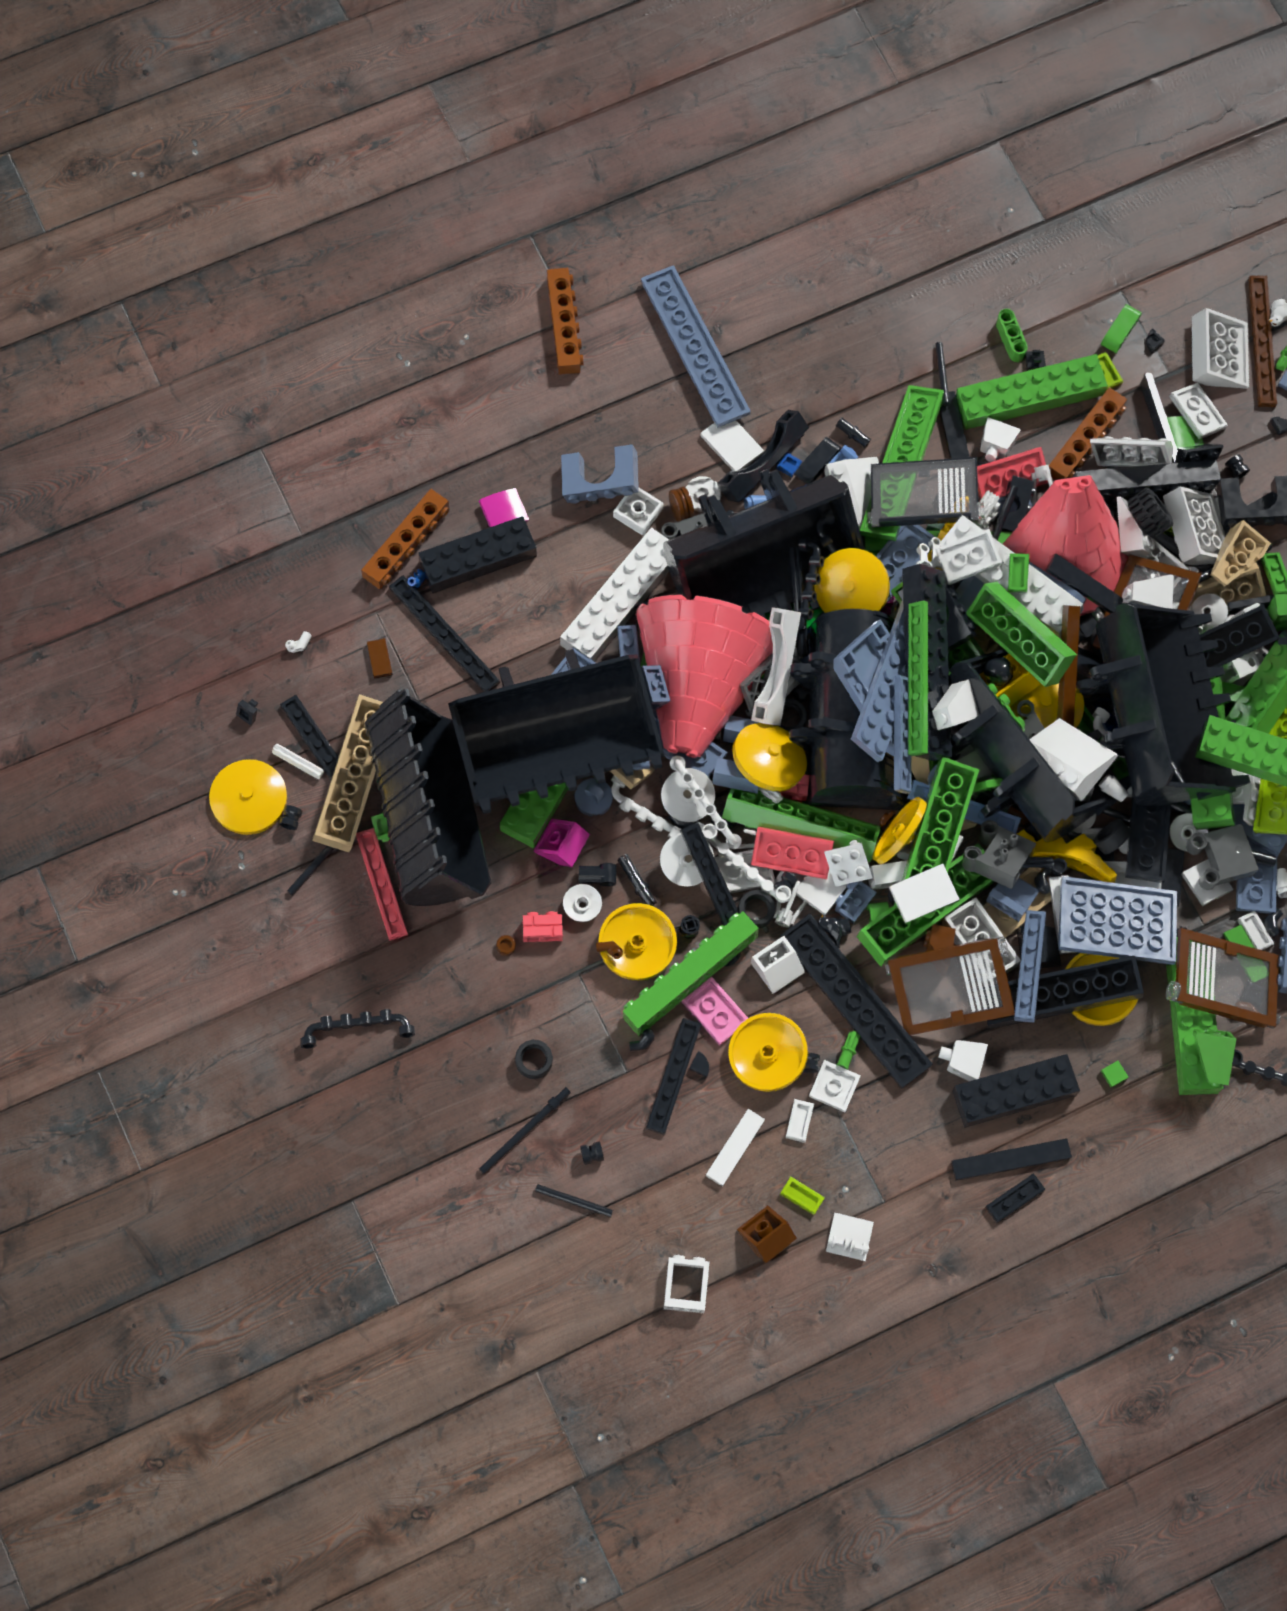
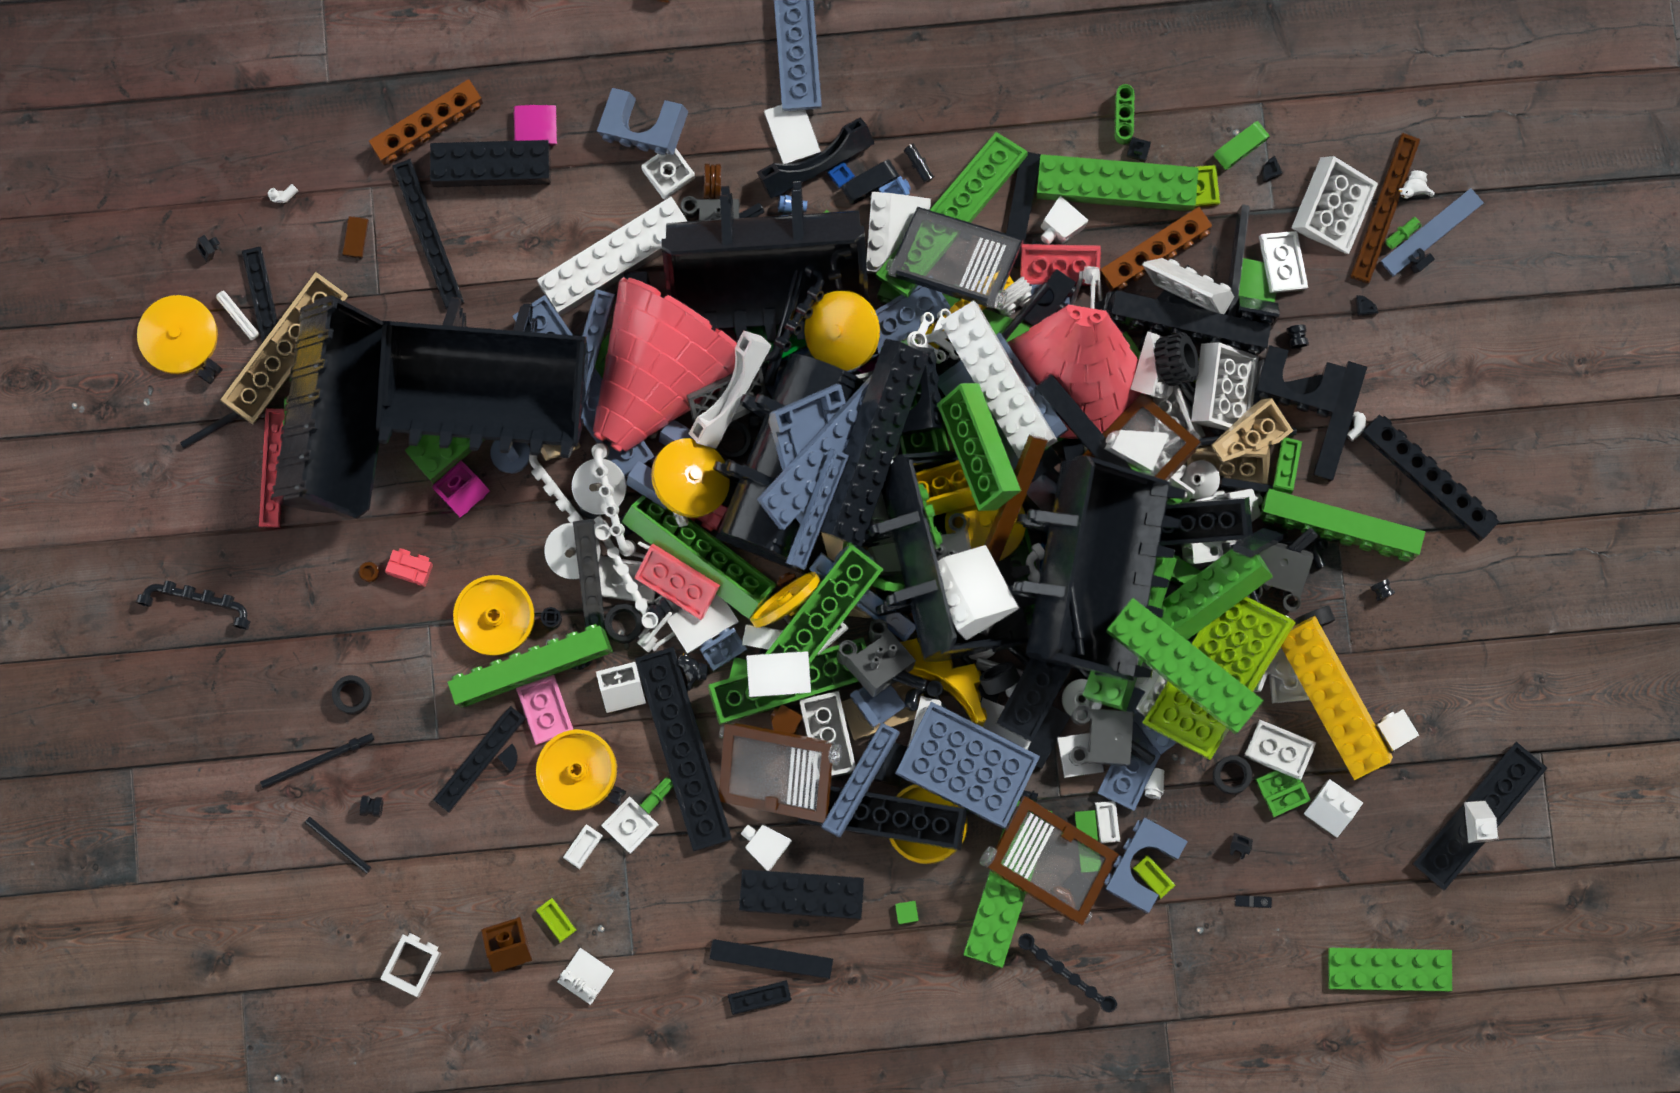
camera: 25 degrees right, 10 degrees up
(418, 578) = (422, 170): blue arm -> none
(585, 894) = (451, 548): white dish -> none
(604, 874) = (488, 535): black piece -> none
(611, 948) = (464, 614): reddish brown arm -> none
(640, 886) = (520, 561): black pin -> none
(644, 1042) = (464, 716): black arm -> none
(655, 686) = (599, 368): sand blue bracket -> none
(701, 486) = (741, 176): white tile -> none
(735, 1147) = (510, 850): white tile -> none
(848, 864) = (725, 613): white hinge -> none
(918, 679) = (852, 458): bright green tile -> none
(942, 373) = (1036, 130): black bar -> none
(956, 706) = (882, 499): white slope -> none
(969, 556) = (961, 347): white tile -> none
(998, 671) = (945, 474): black hair -> none
(1018, 573) = (1002, 382): bright green tile -> none
(1113, 788) = (1008, 633): white cone -> none
(1216, 1054) = (1003, 932): bright green slope -> none
(1271, 922) = (1126, 819): black arm -> none

